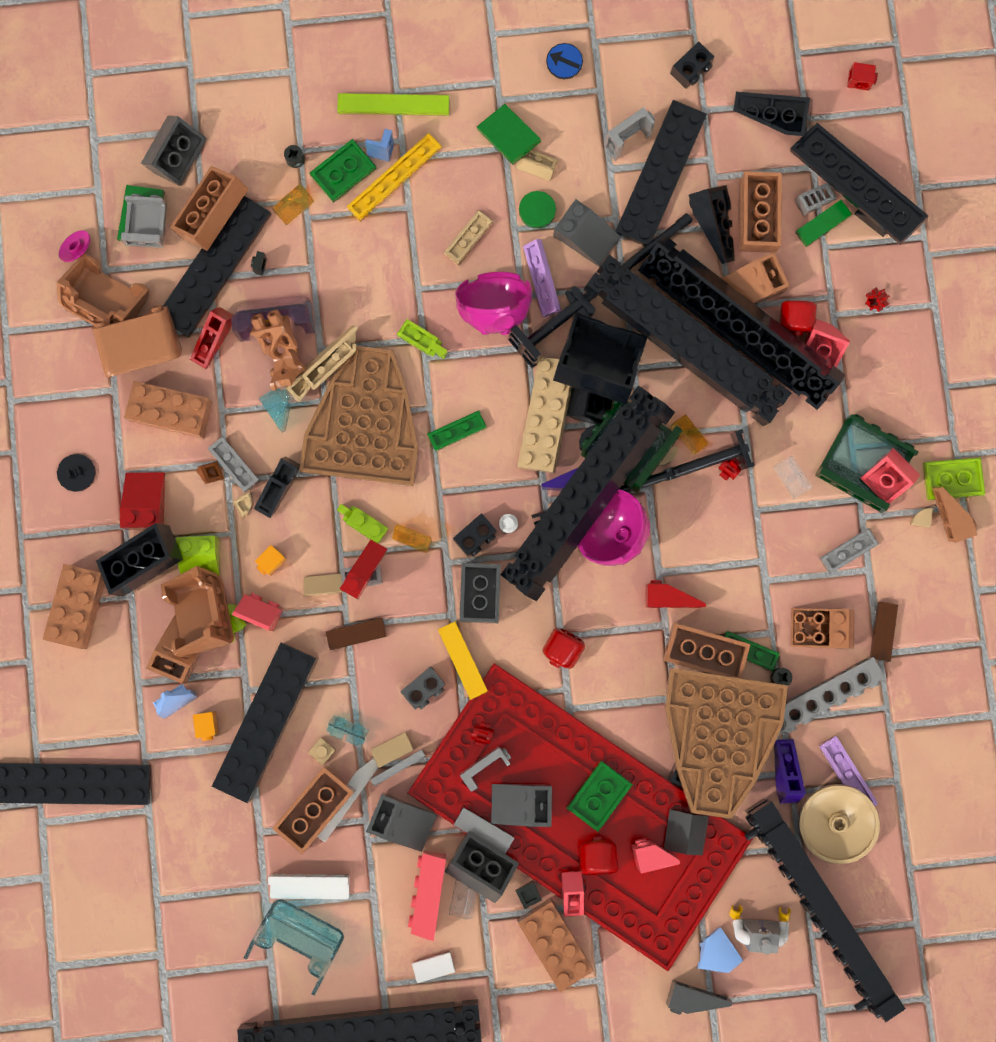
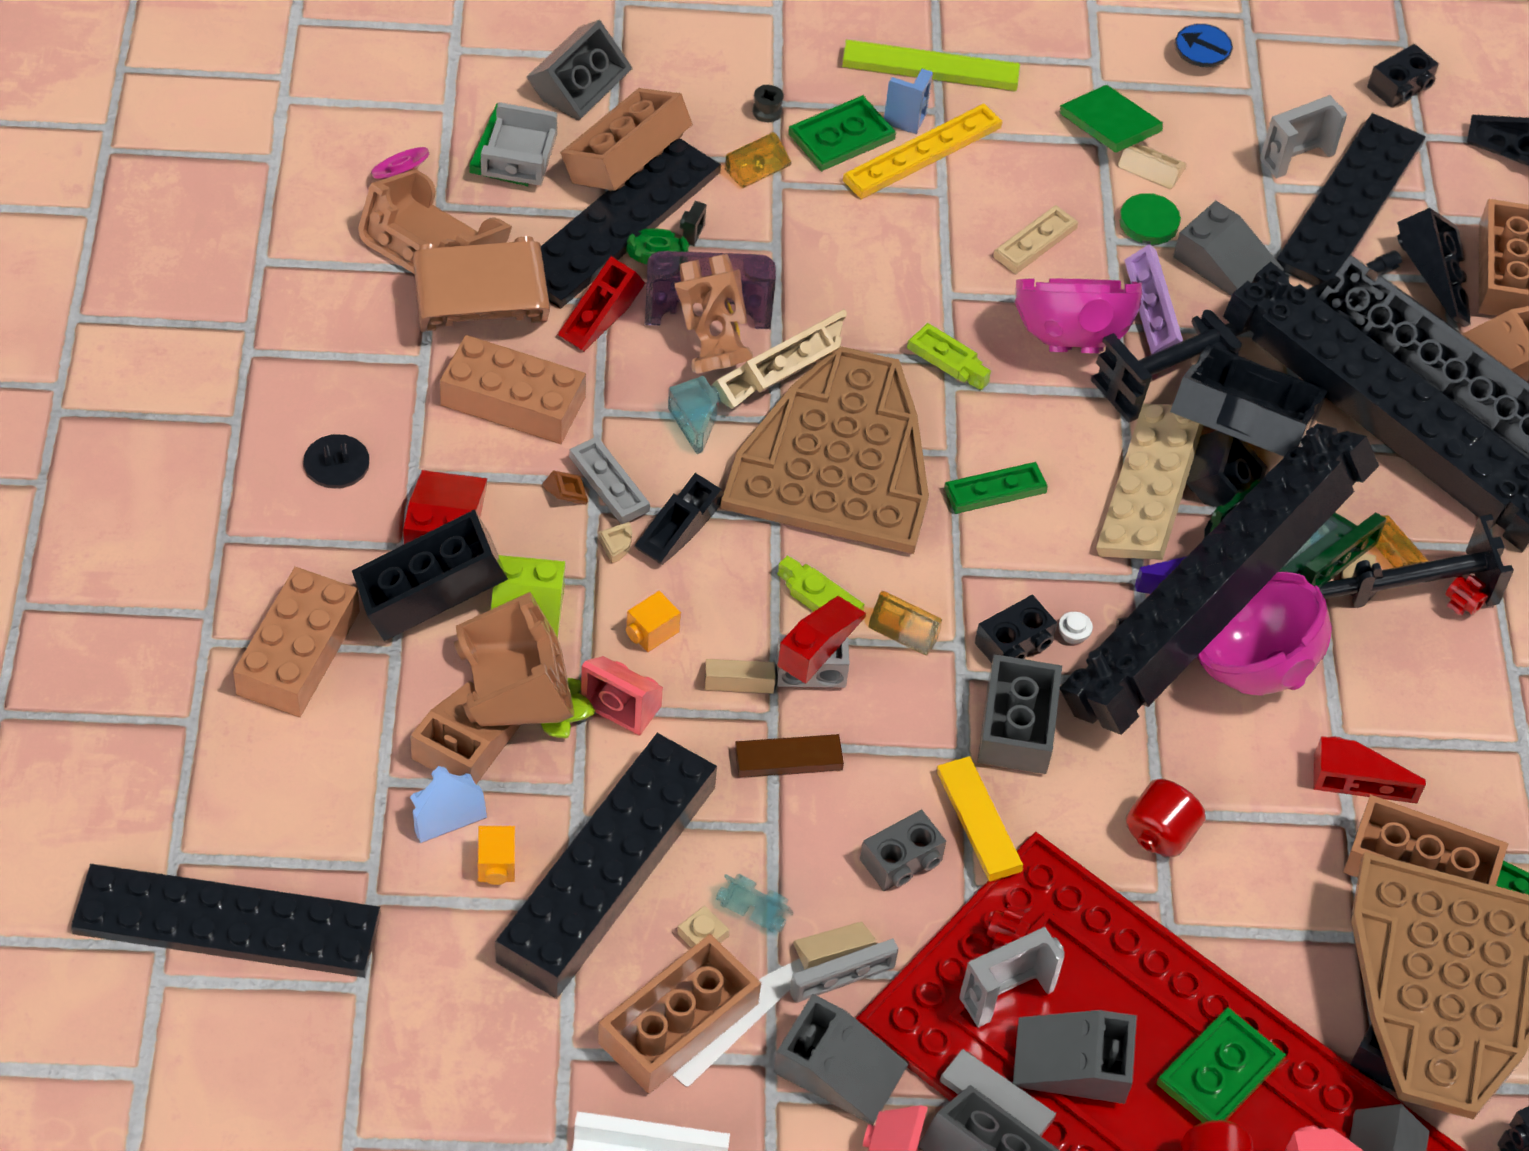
camera: 10 degrees right, 30 degrees down
(240, 287) = (654, 241): none -> green tile

